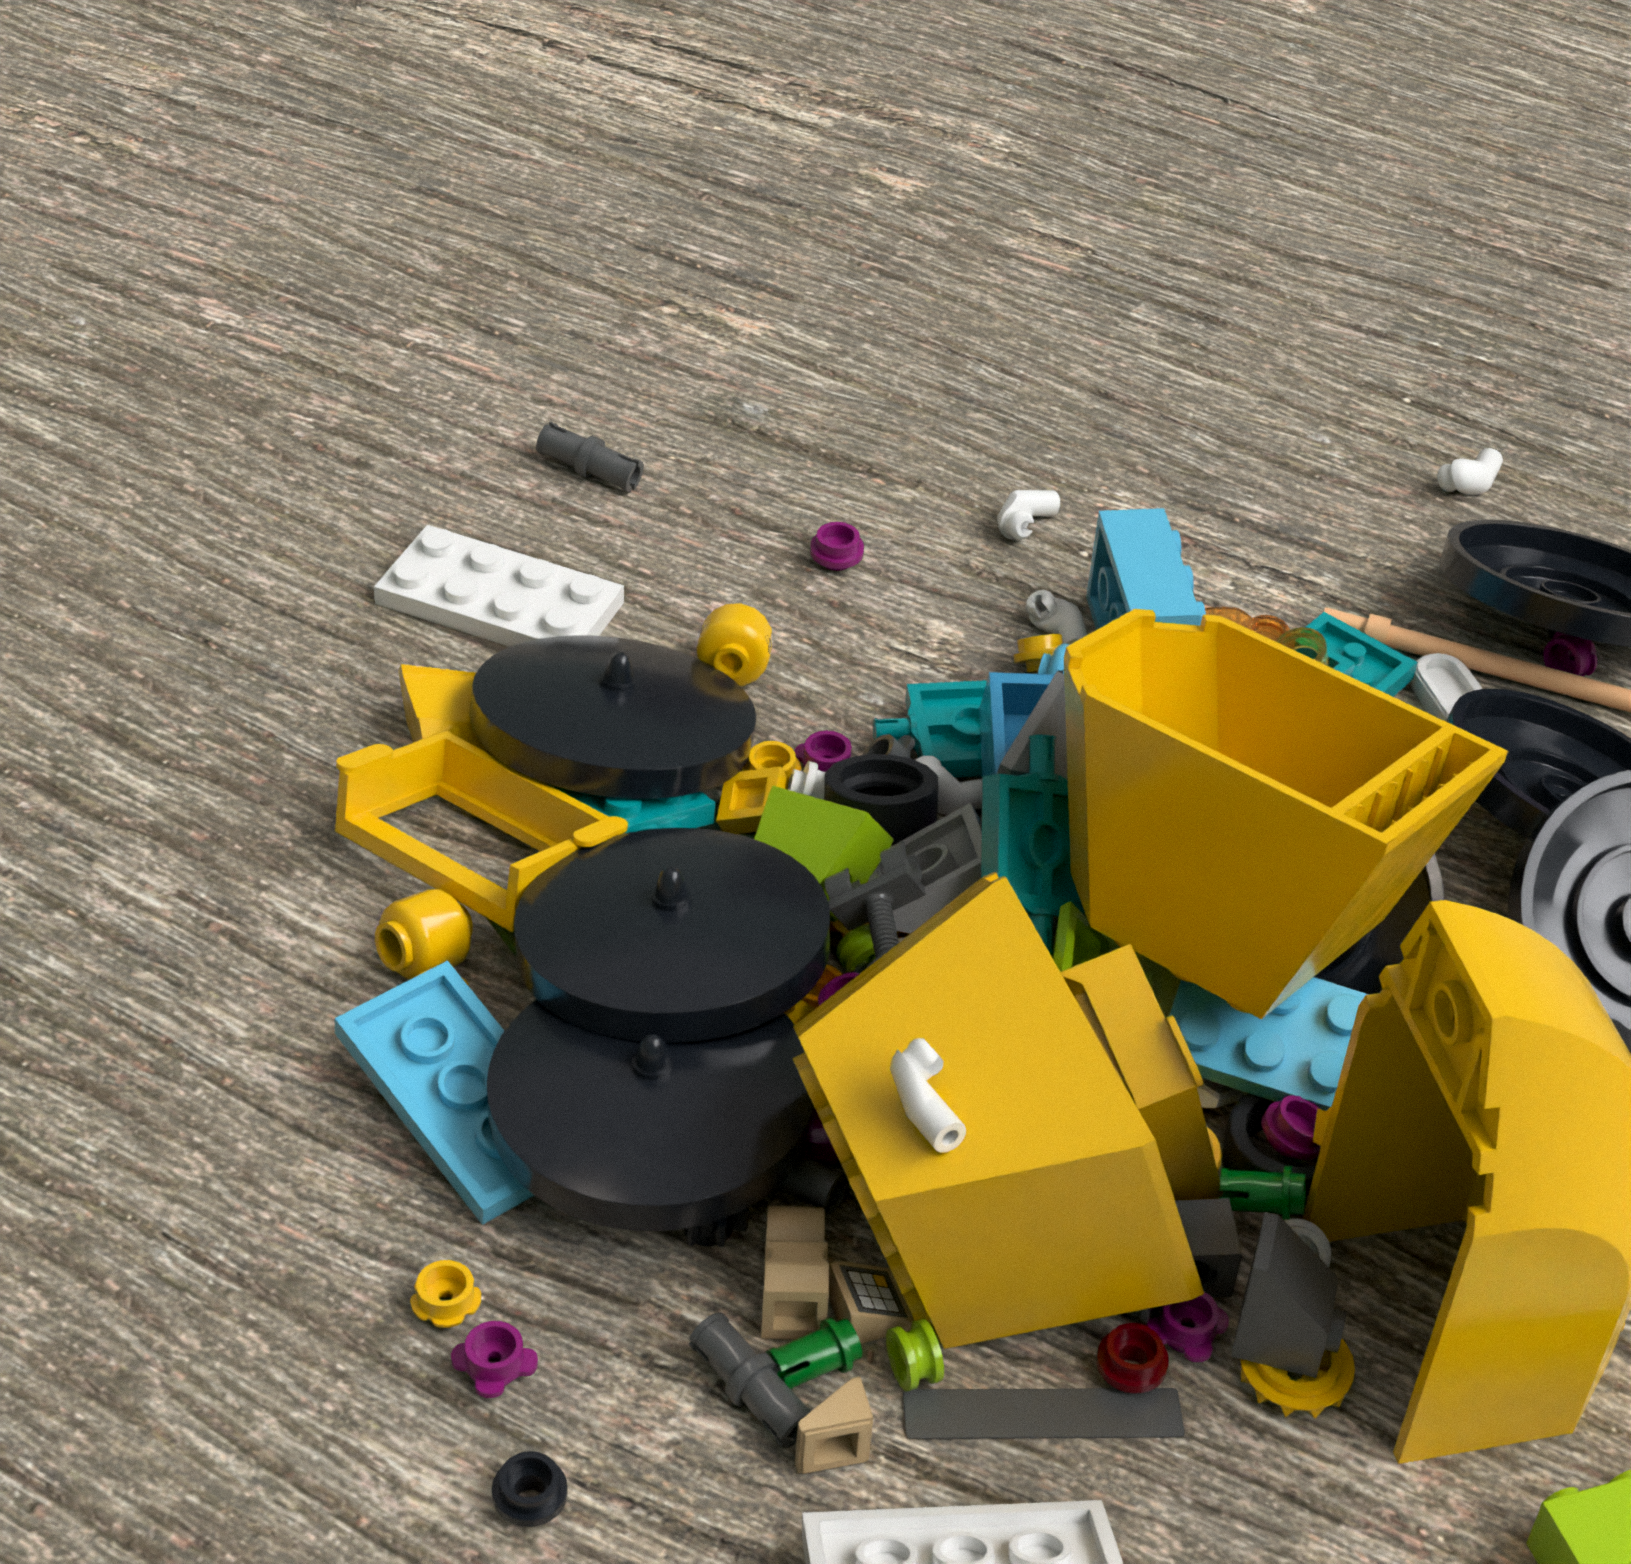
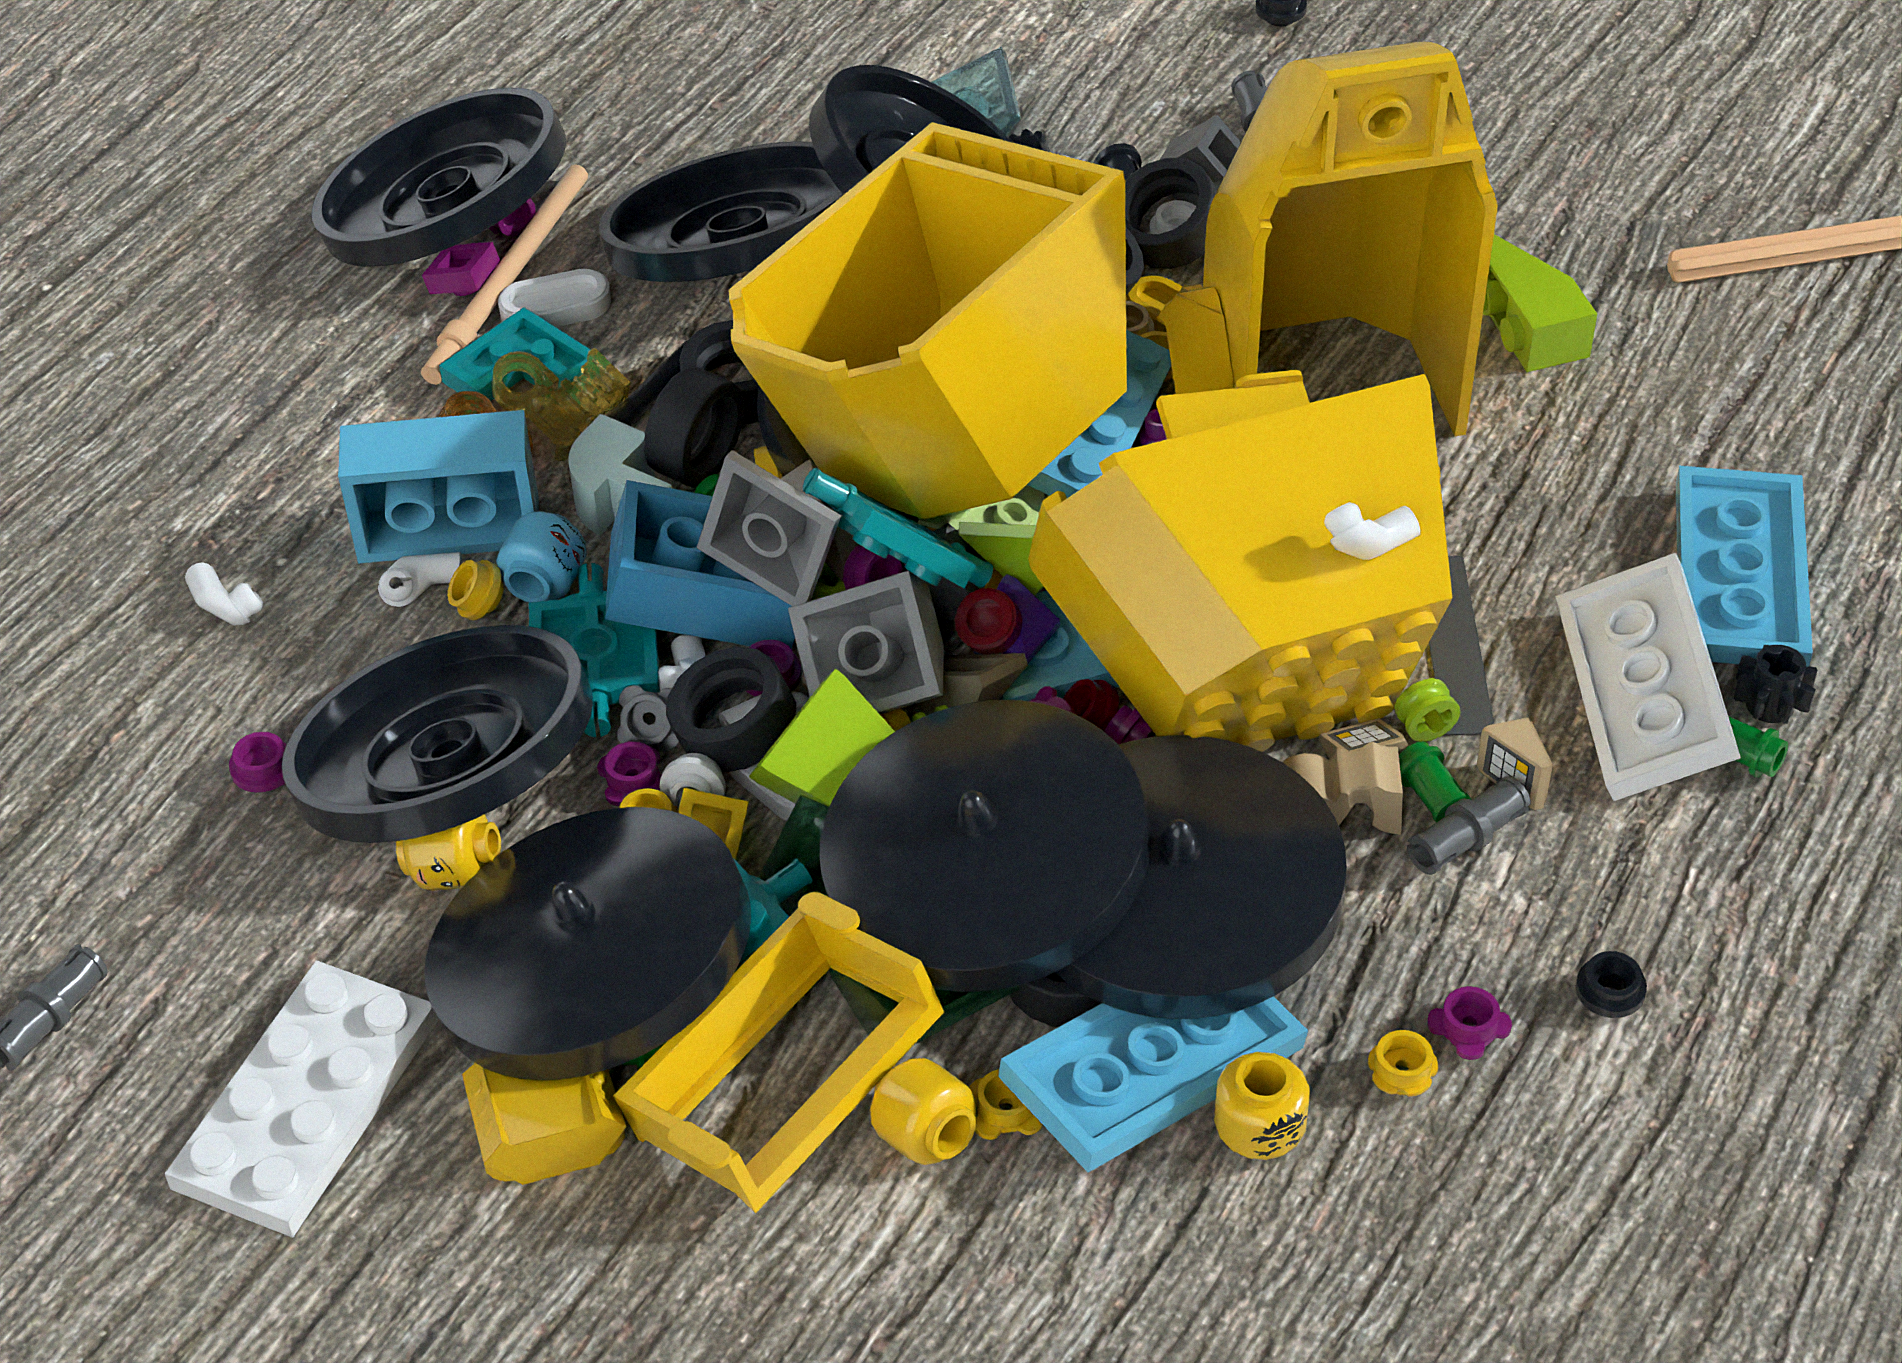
camera: 85 degrees left, 5 degrees up
(389, 1159) = (1261, 1105): none -> yellow head
(839, 615) = (437, 733): none -> black container
(877, 899) = (1035, 673): dark grey bar -> none
(1471, 476) = (209, 243): white arm -> none
(1471, 624) = (461, 269): none -> magenta plate

